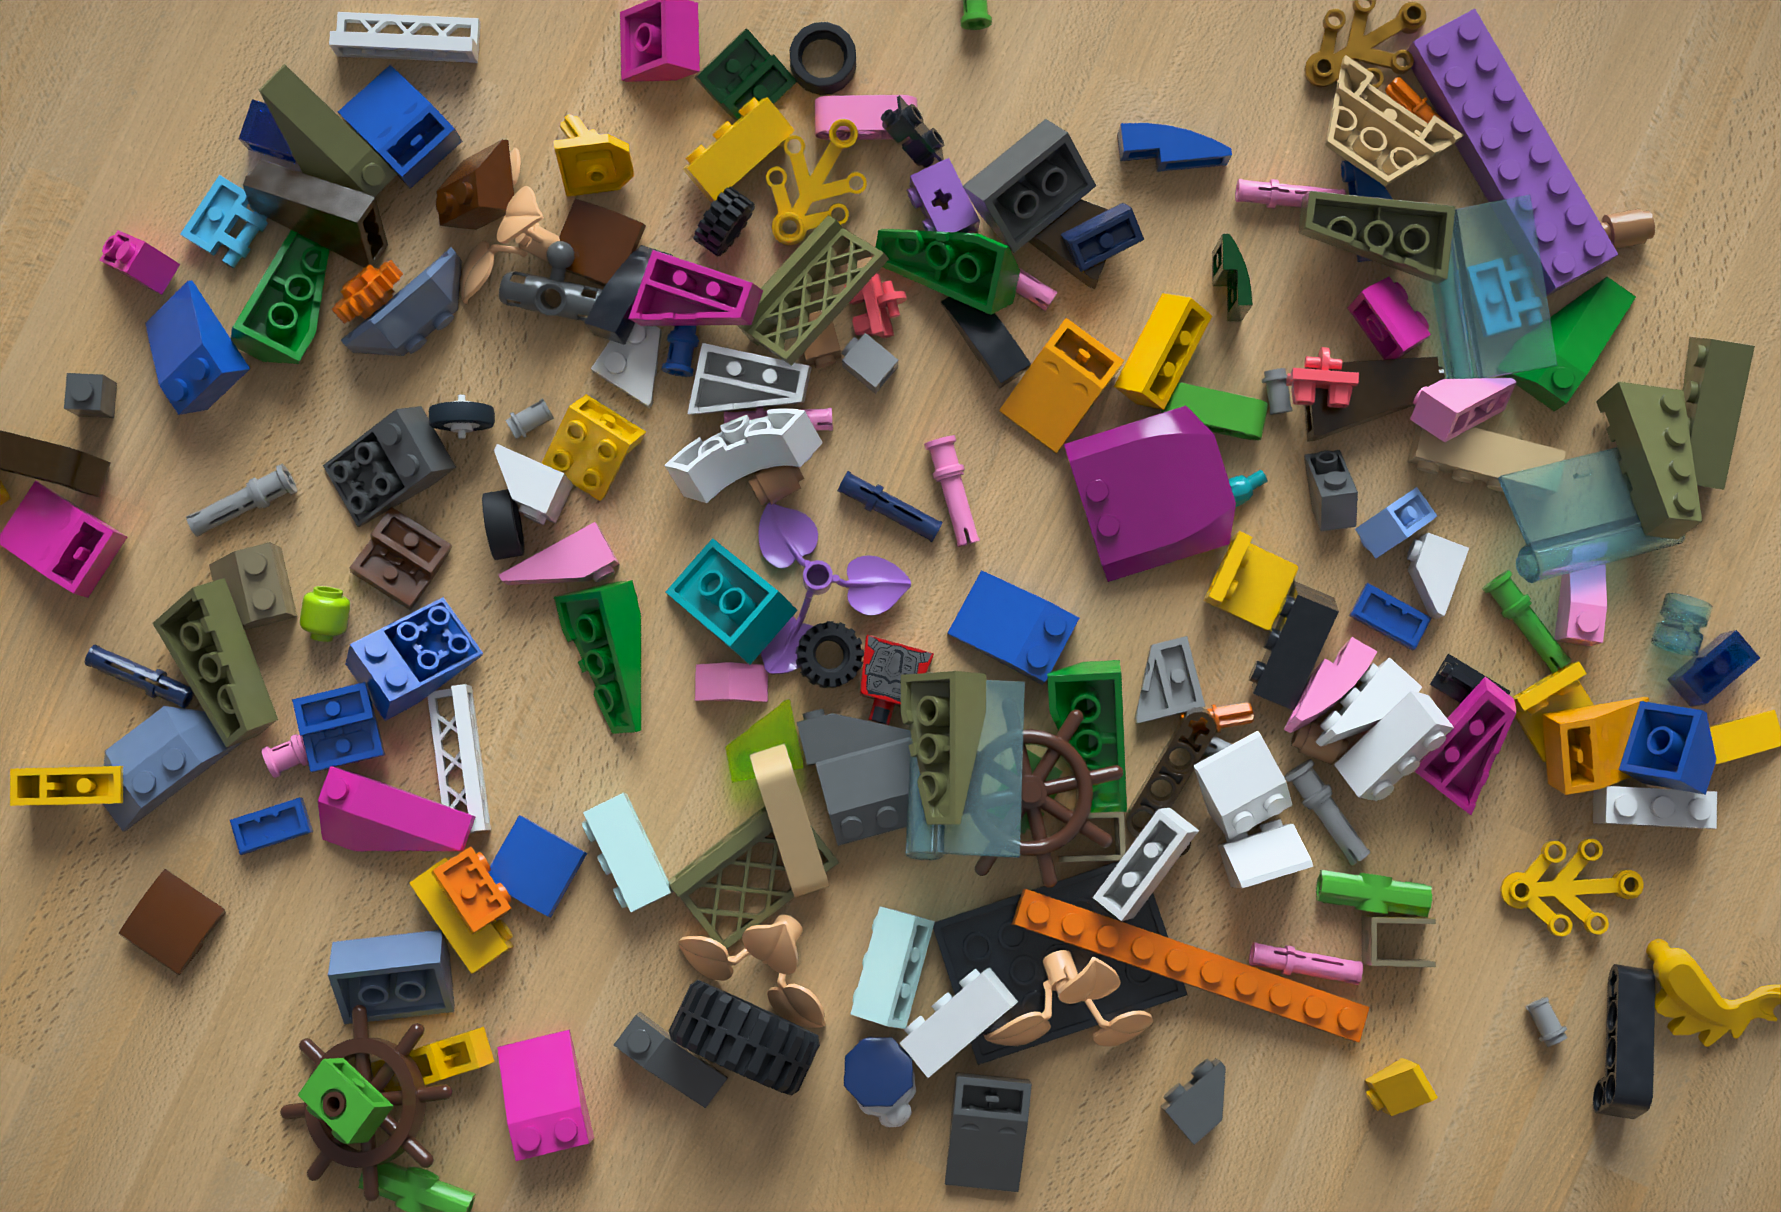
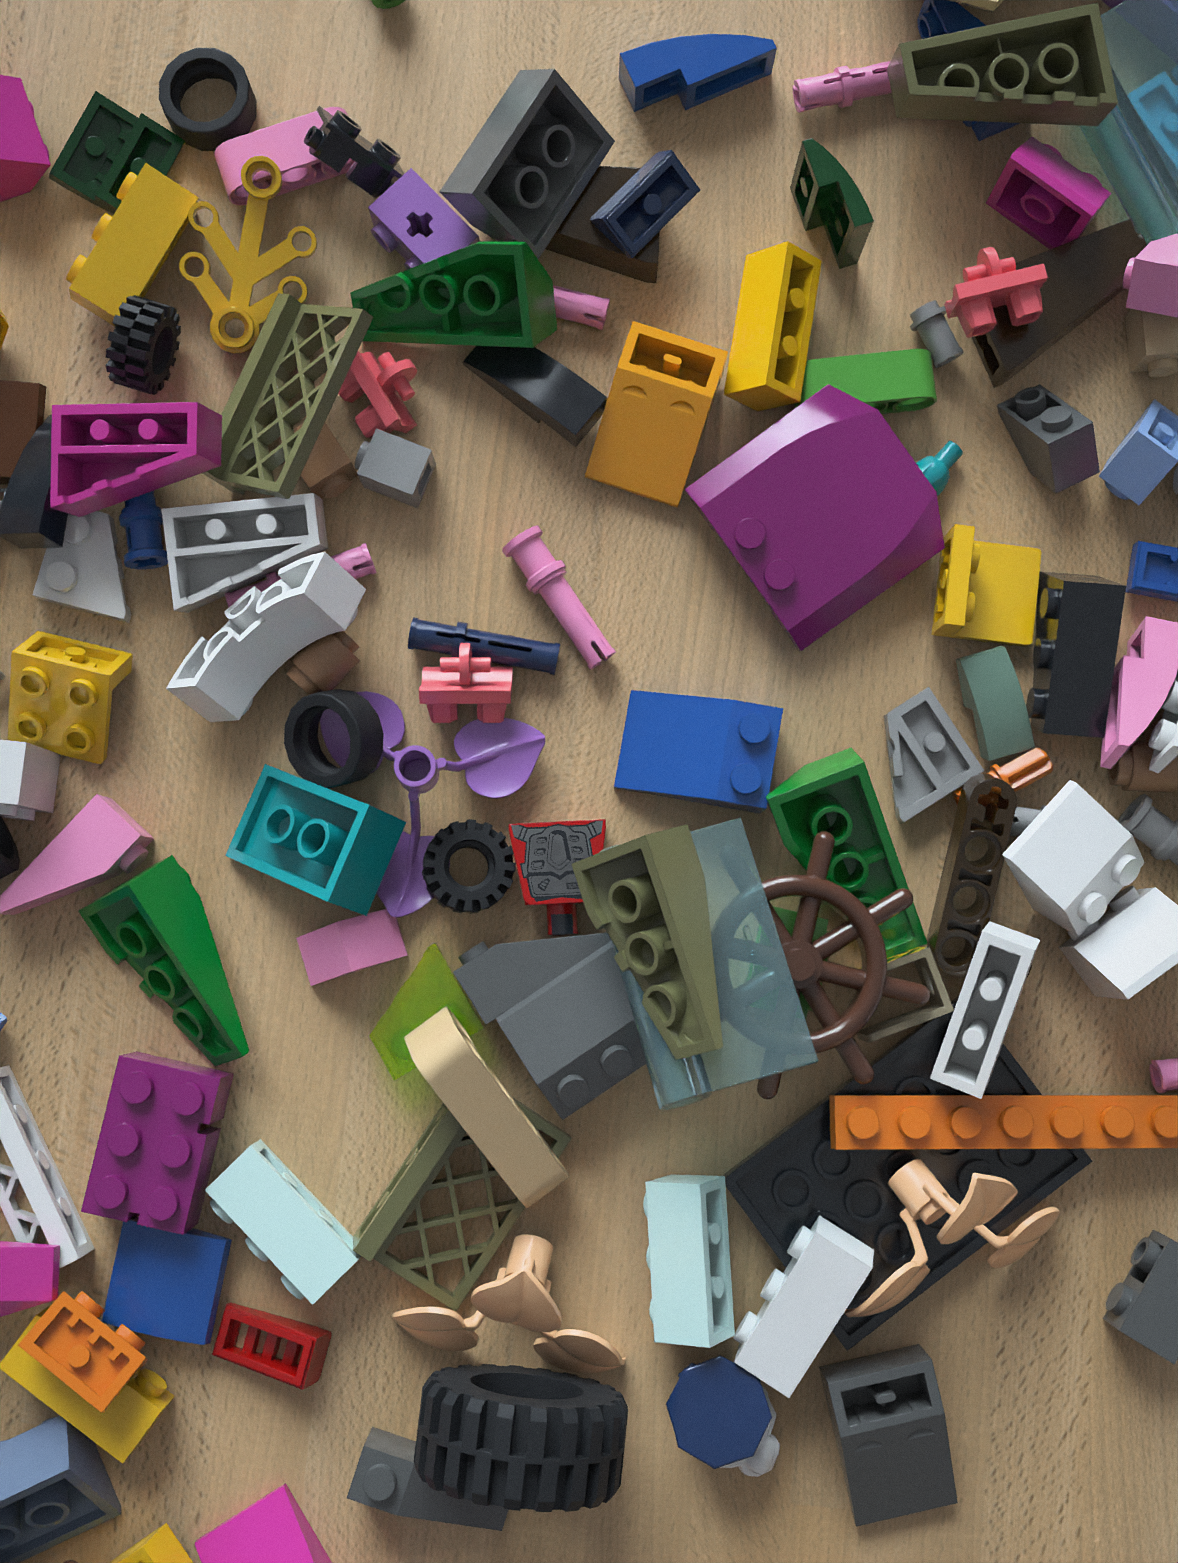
camera: 15 degrees left, 0 degrees up
(557, 770) = (151, 1145): none -> magenta piece
(617, 948) = (313, 1338): none -> red slope
(744, 532) = (304, 747): none -> black tyre
(870, 528) = (466, 682): none -> coral hips
(1230, 662) = (997, 702): none -> sand green slope

